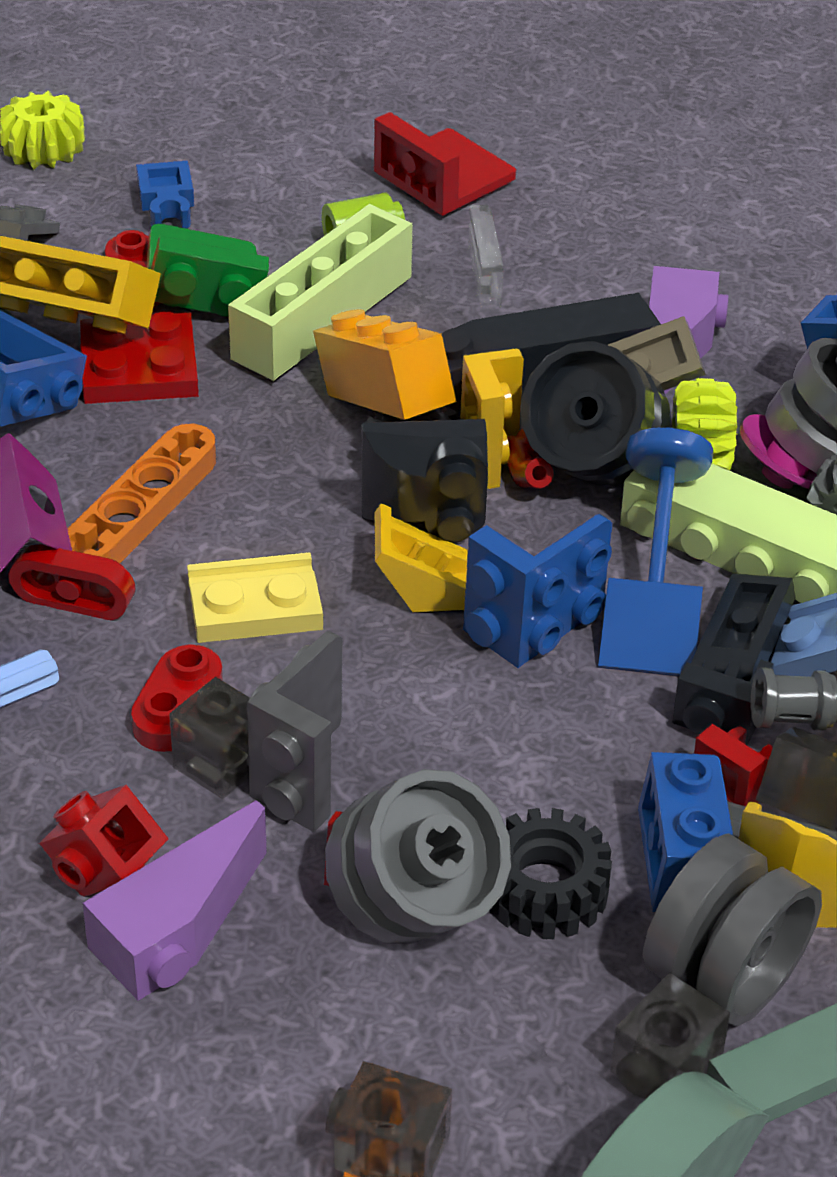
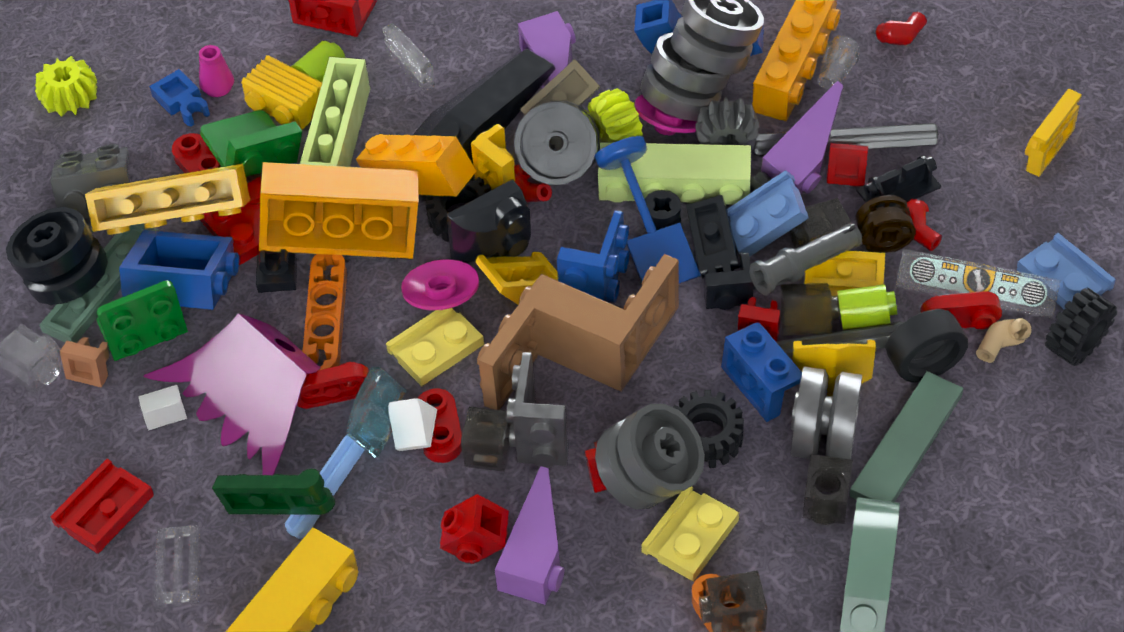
camera: 25 degrees left, 10 degrees up
(99, 637) = (369, 418): none -> clear light blue slope
(120, 425) = (276, 271): none -> black tile
(133, 669) = (412, 423): none -> white slope
(226, 181) = (214, 73): none -> dark pink cone
(236, 372) = (338, 210): none -> light orange brick
(284, 222) = (281, 92): none -> yellow brick
(312, 525) = (440, 284): none -> dark pink dish
(420, 1004) = (690, 533): none -> light yellow plate
(457, 660) = (580, 331): none -> medium nougat bracket
(695, 562) = (663, 208): none -> black wheel

